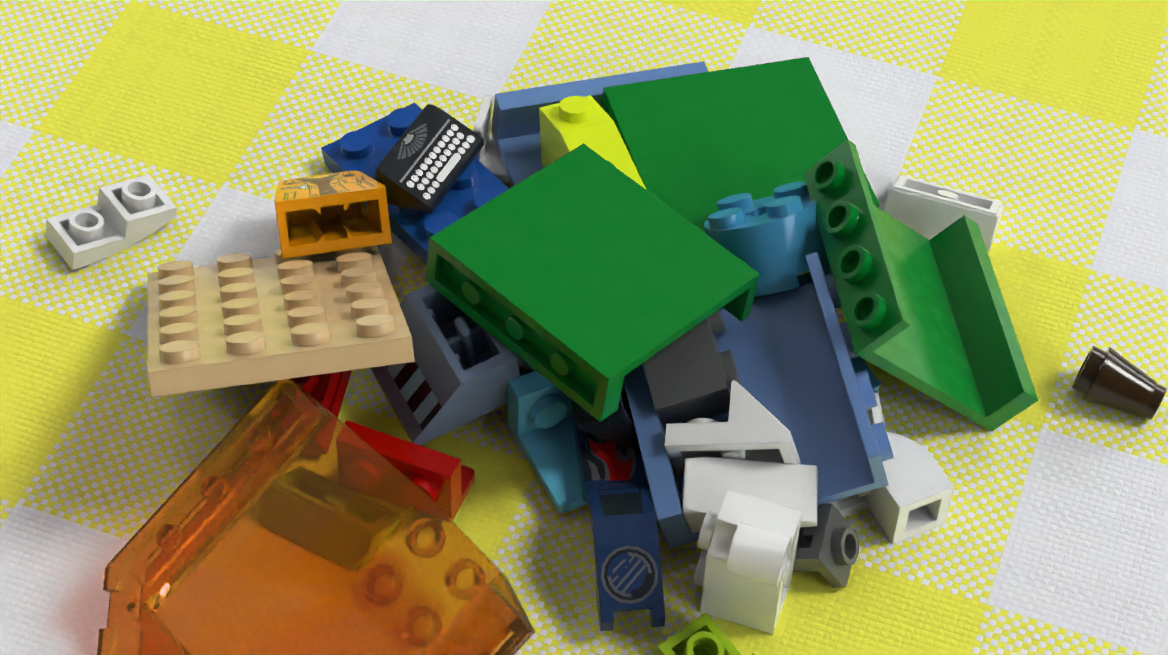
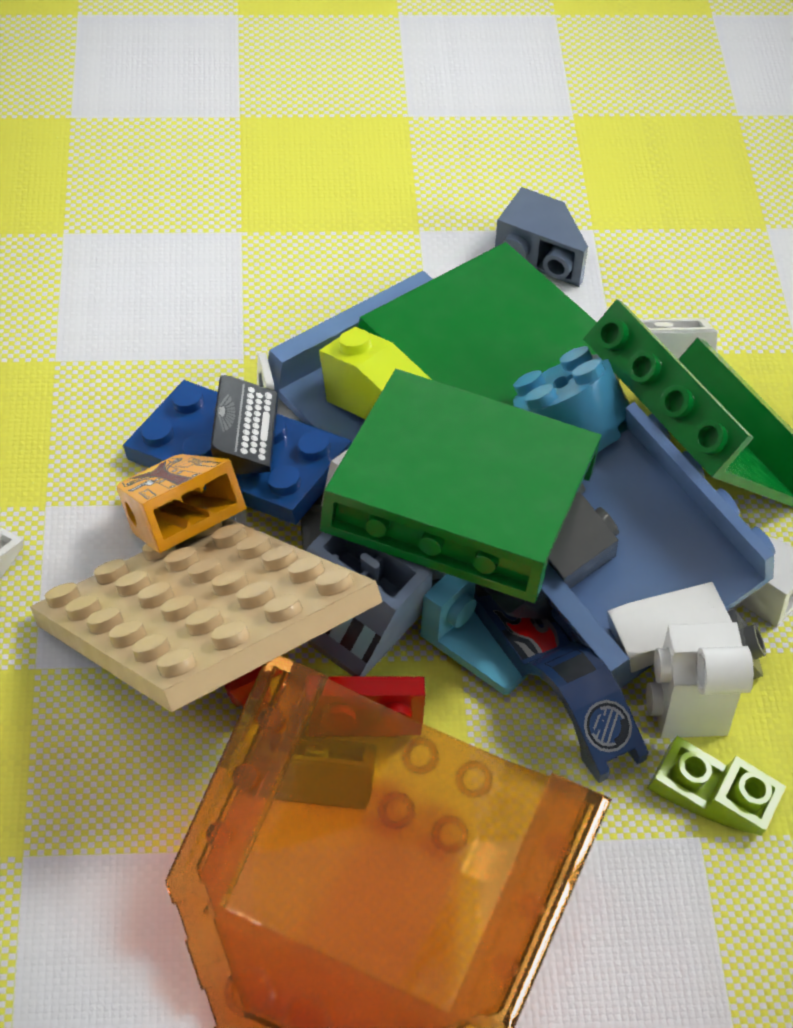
camera: 25 degrees left, 0 degrees up
(747, 435) = (649, 574): white slope -> none
(864, 64) = (544, 235): none -> sand blue slope

